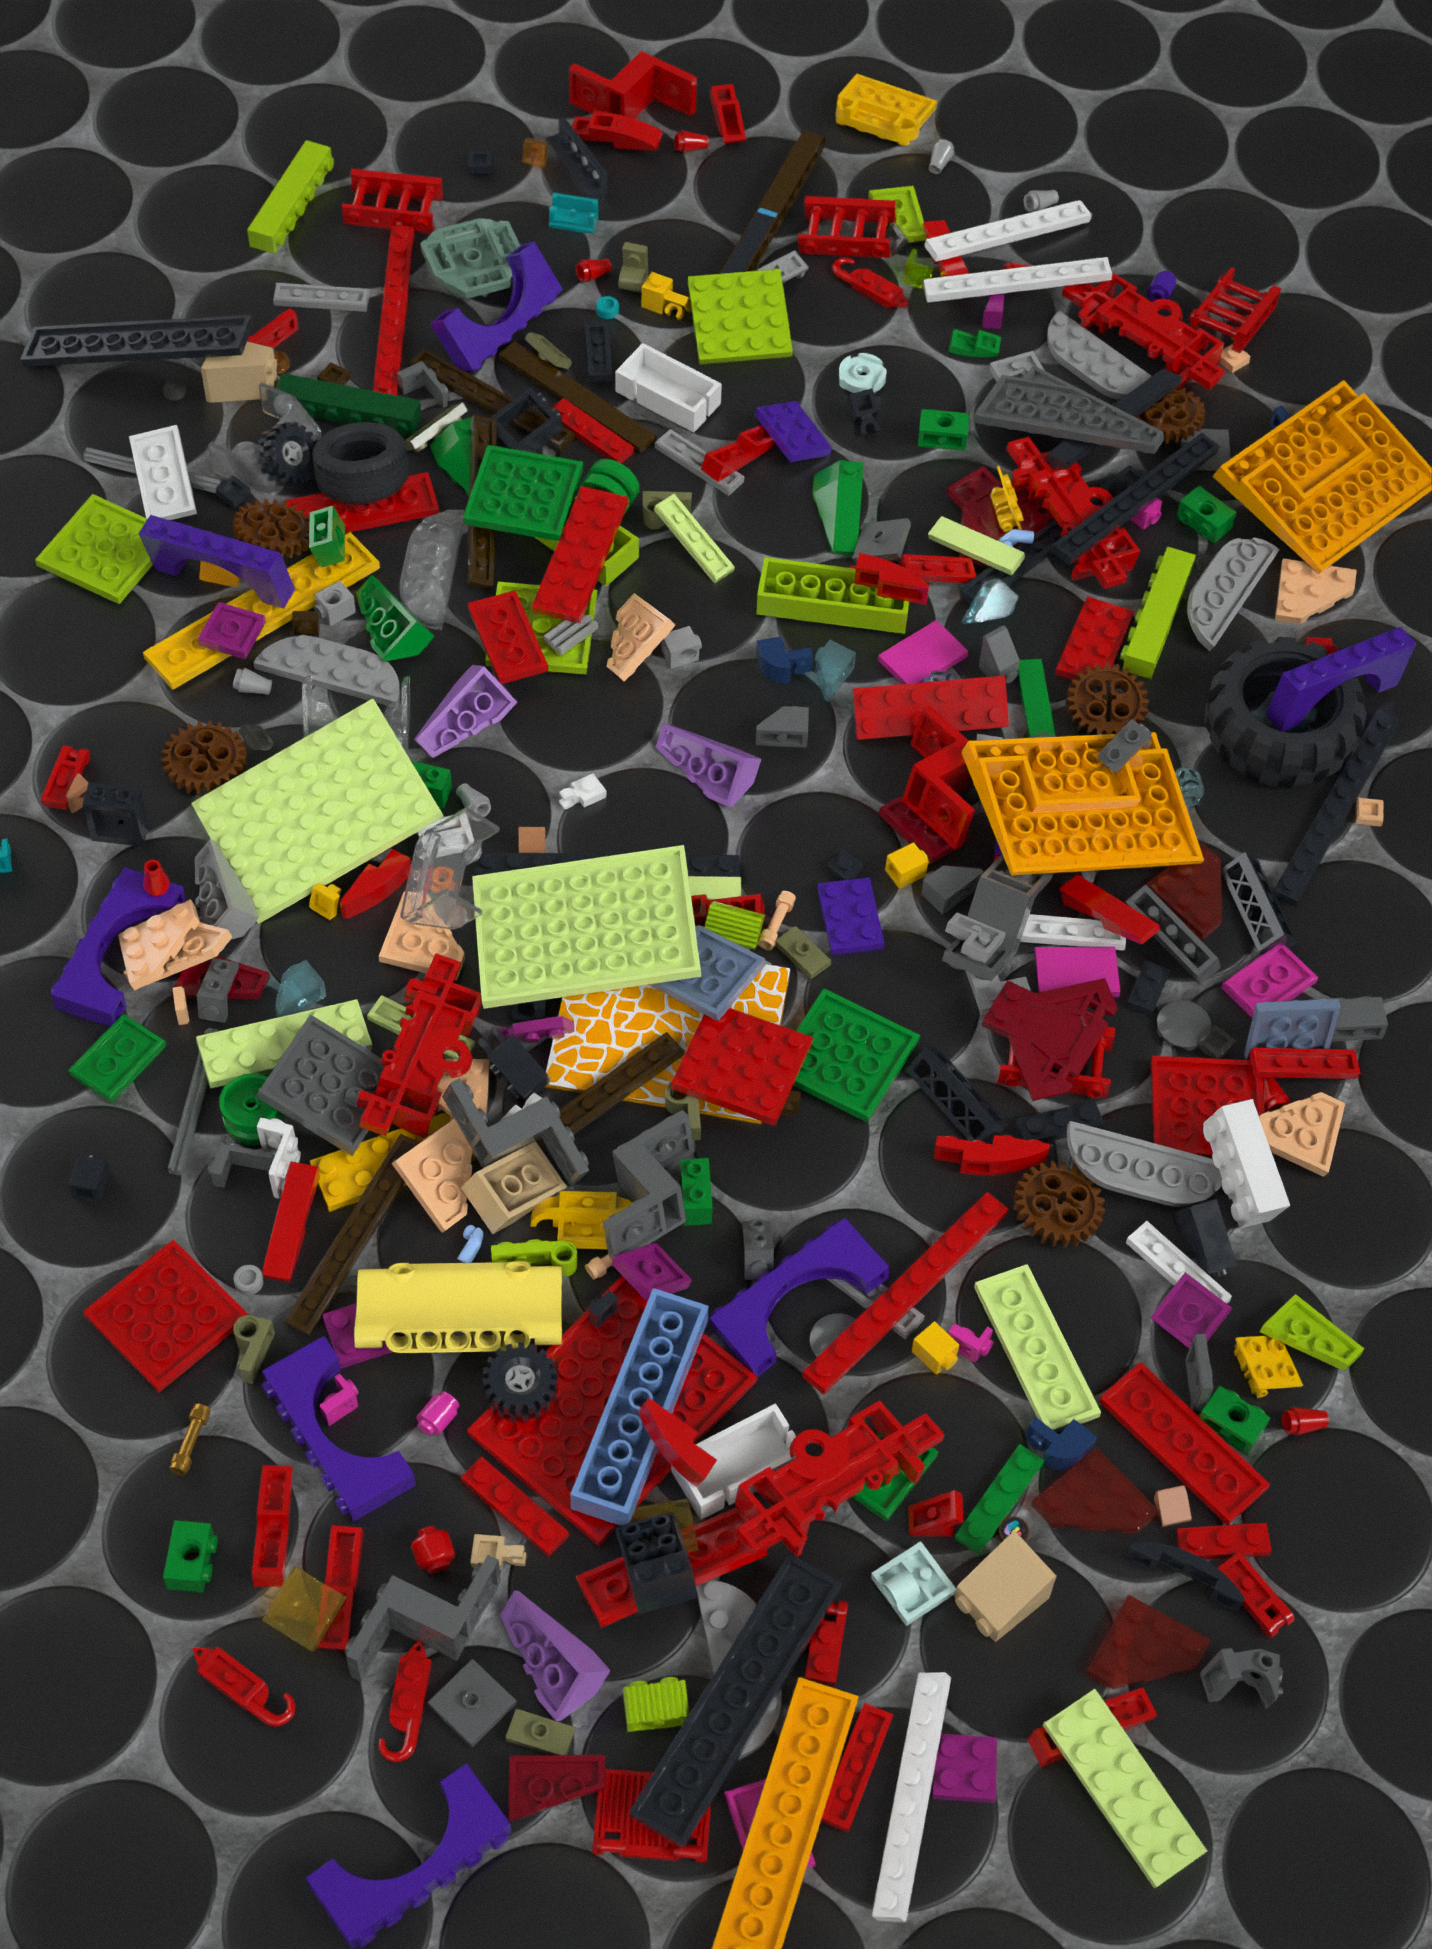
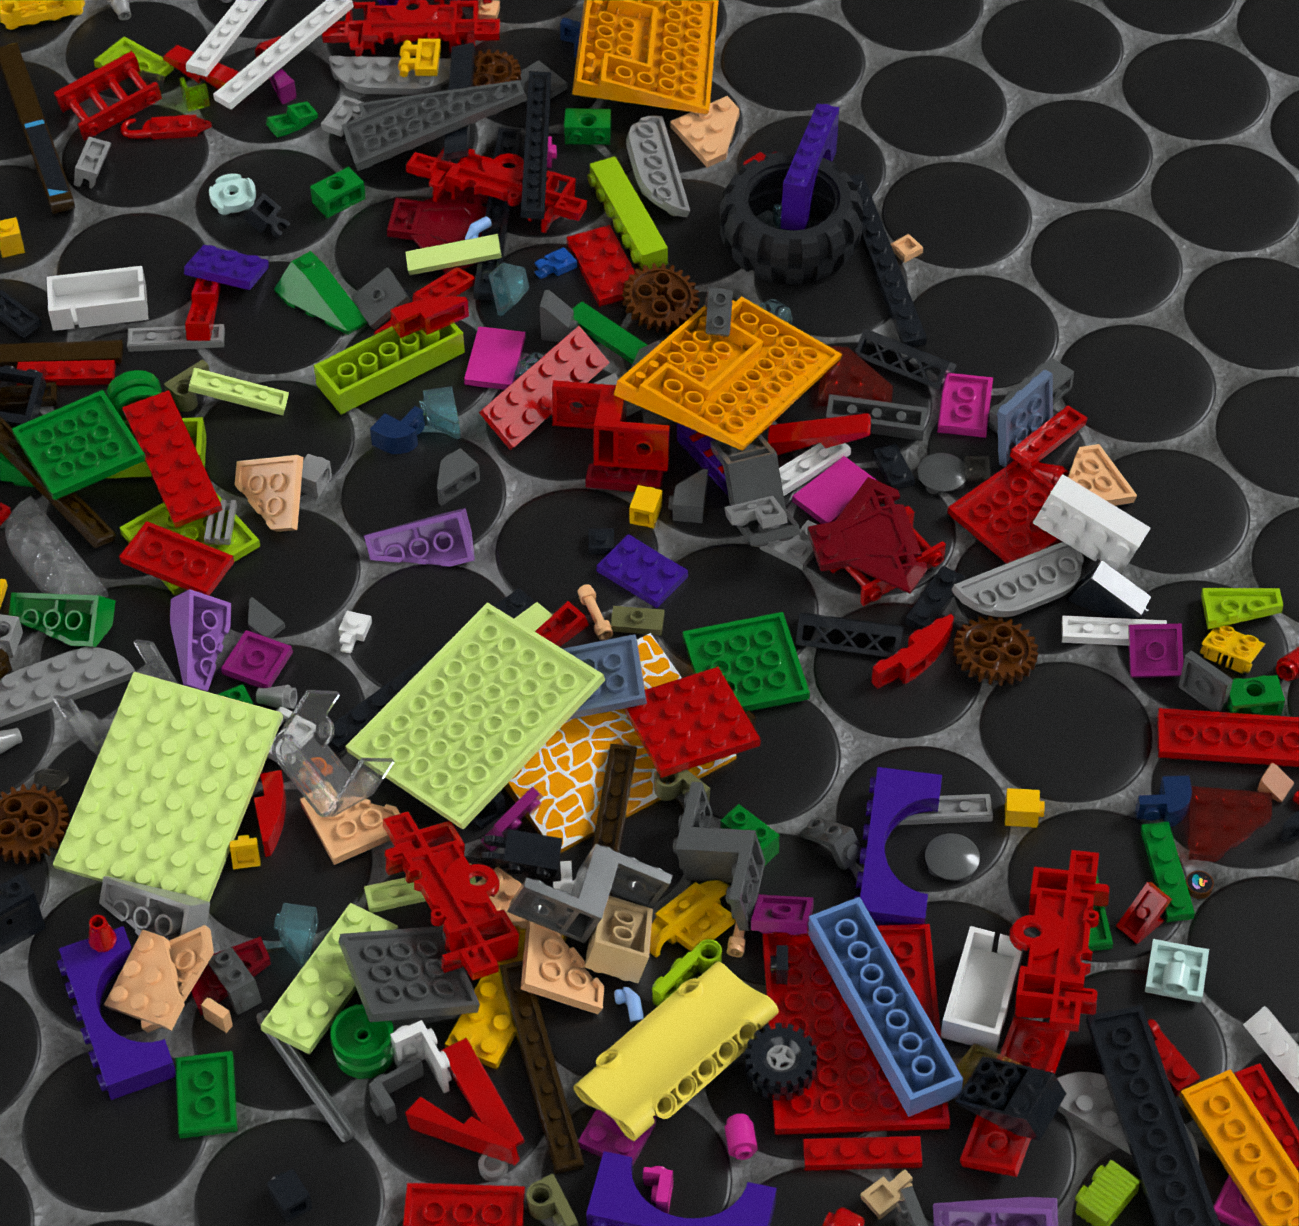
camera: 40 degrees left, 5 degrees down
(250, 1239) = (471, 1135): none -> red slope
(488, 761) = (257, 660): none -> magenta plate
(526, 734) = (263, 621): none -> dark grey tile
(532, 840) = (355, 690): nougat slope -> none
(676, 1443) = (944, 1002): red slope -> none
(677, 301) = (33, 233): yellow tile -> none
(735, 924) = (575, 631): lime brick -> none
(739, 316) = (95, 212): lime plate -> none
(904, 1293) = (964, 790): red plate -> none
(969, 1344) = (1044, 783): dark pink bracket -> none
(1005, 1587) = (1239, 919): tan slope -> none
(1006, 504) = (446, 209): yellow hinge -> none
(1036, 1348) = (1083, 754): yellowish green plate -> none
(1059, 612) = (557, 262): none -> blue plate
(1129, 365) = (427, 57): none -> yellow plate

